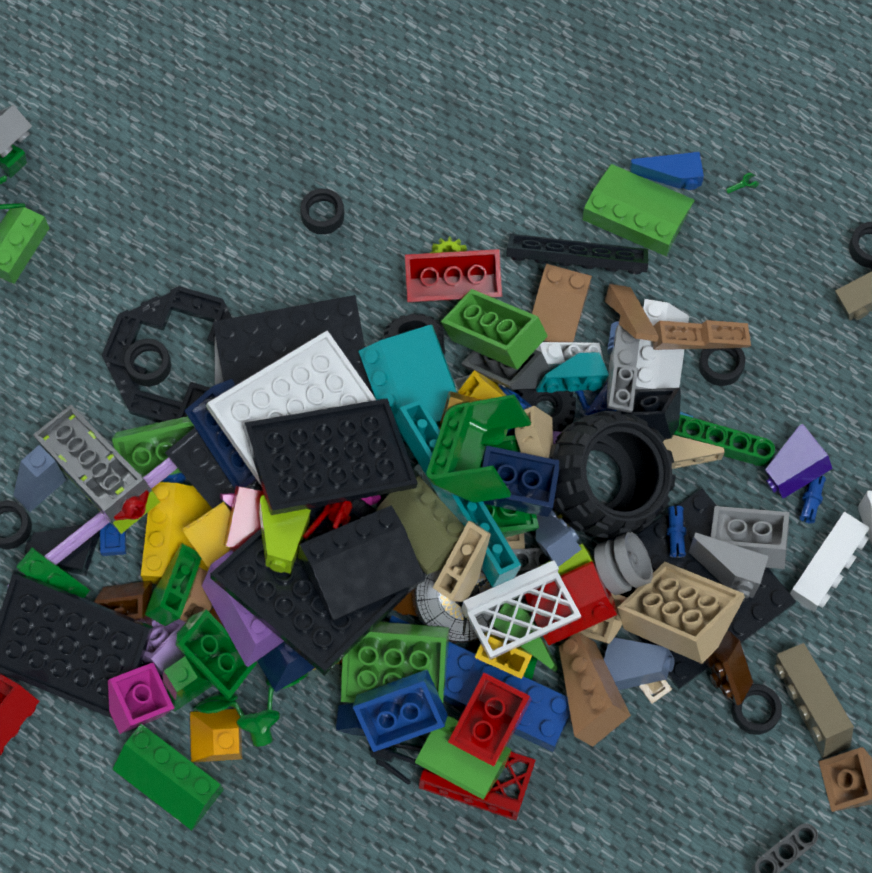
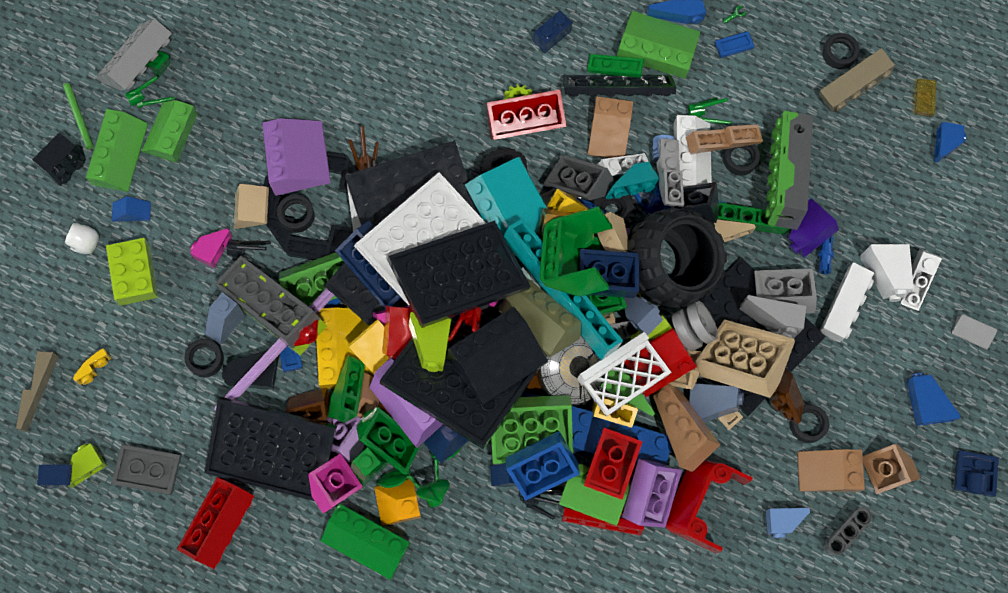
camera: 15 degrees left, 5 degrees up
(38, 391) = (211, 247): none -> dark pink slope
(45, 570) = (243, 392): green plate -> none
(71, 396) = (238, 248): none -> black plant
(94, 346) = (250, 206): none -> tan slope
(159, 290) = (295, 154): none -> medium lavender slope
(245, 308) = (365, 160): none -> reddish brown plant
(321, 227) = (411, 62): black tyre -> none
(463, 564) = (578, 345): tan slope -> none
(494, 328) = (567, 153): bright green brick -> none
(504, 178) = (552, 31): none -> dark blue brick
(535, 766) = (651, 493): none -> medium lavender slope
(570, 803) = (689, 497): none -> red windscreen
(578, 229) = (615, 65): none -> green tile
(632, 314) = (671, 130): medium nougat slope -> none
(675, 297) = (698, 110): none -> green plant
(676, 531) = (729, 295): blue pin -> none
(703, 827) = (784, 520): none -> medium blue slope
(736, 221) = (734, 44): none -> blue tile
(775, 773) = (831, 471): none -> medium nougat slope
(776, 384) = (789, 170): none -> piece
(815, 700) = (853, 411): dark tan wedge -> none

